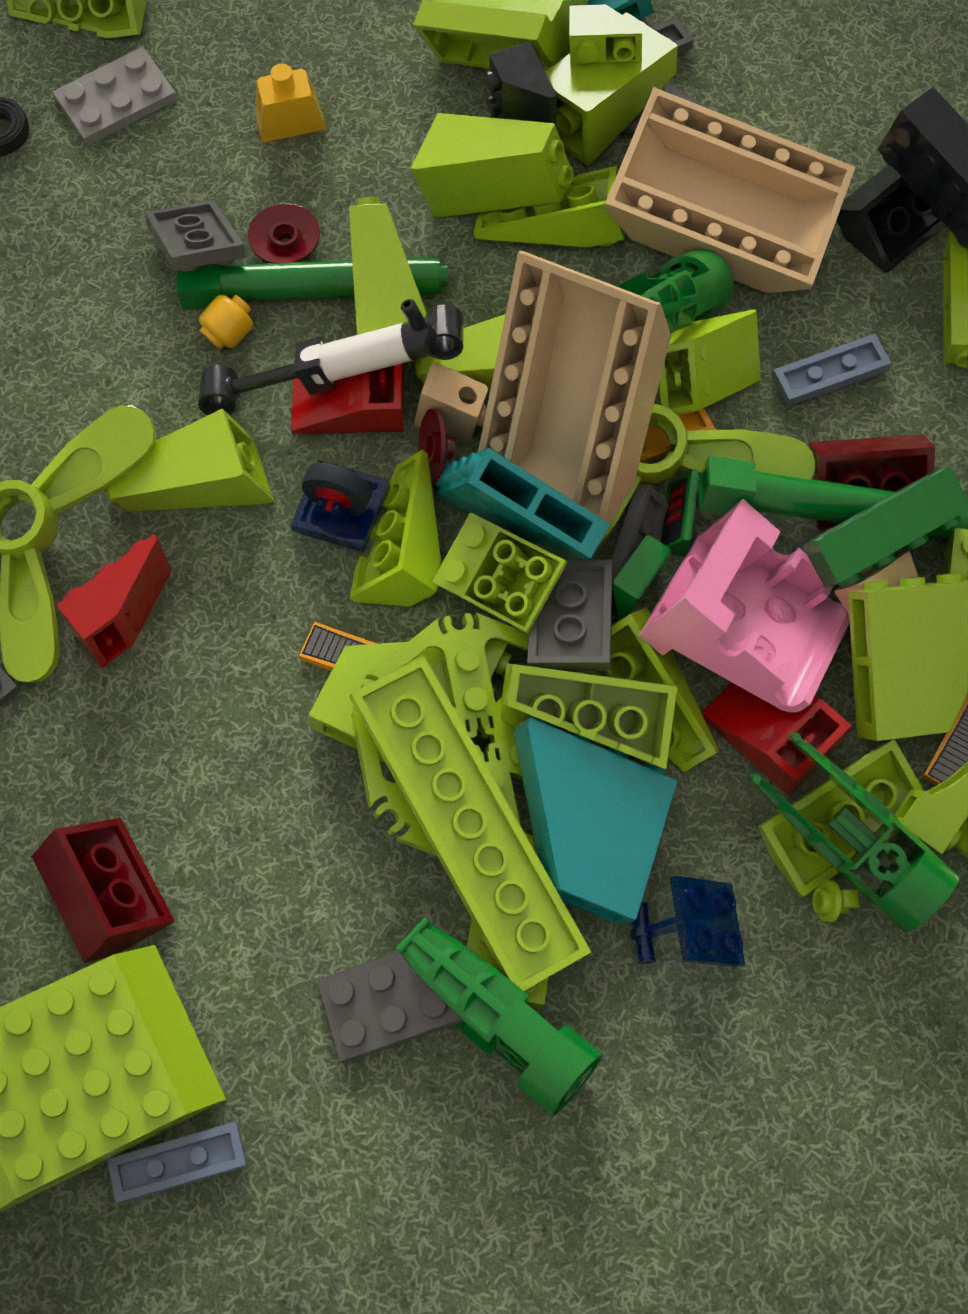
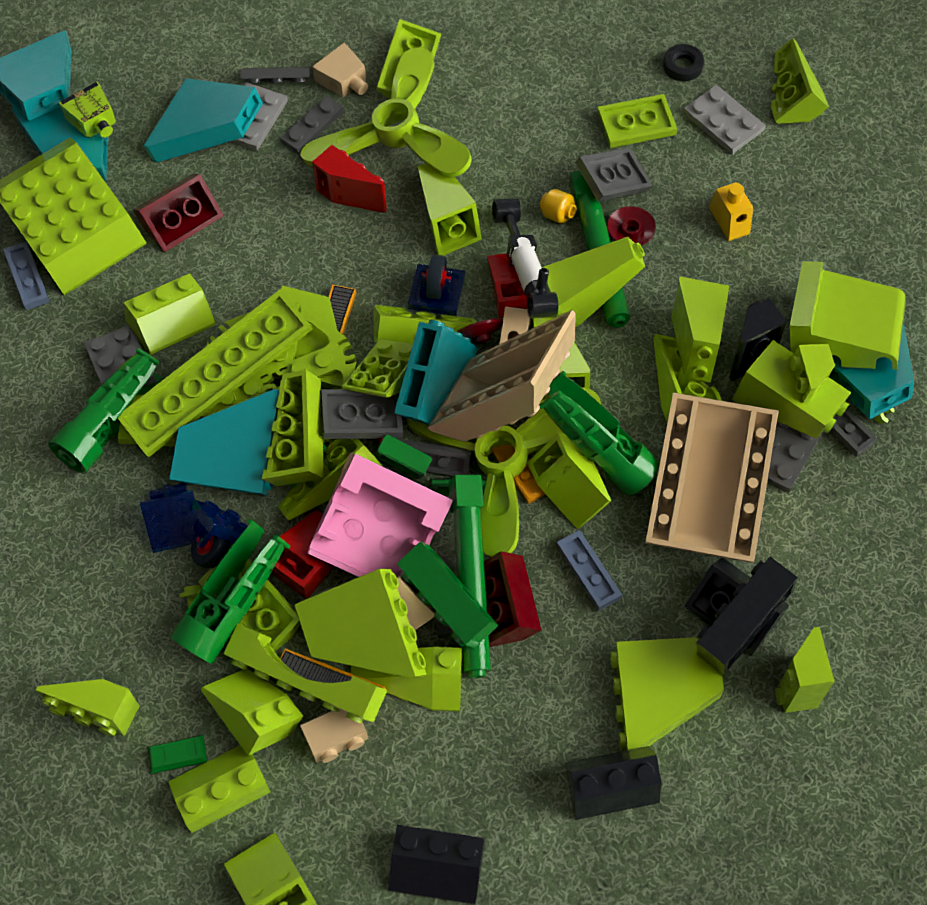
camera: 80 degrees right, 5 degrees down
(90, 200) = (637, 120): none -> lime plate
(318, 909) = (169, 314): none -> lime slope
(744, 850) = (215, 533): none -> clear blue plate

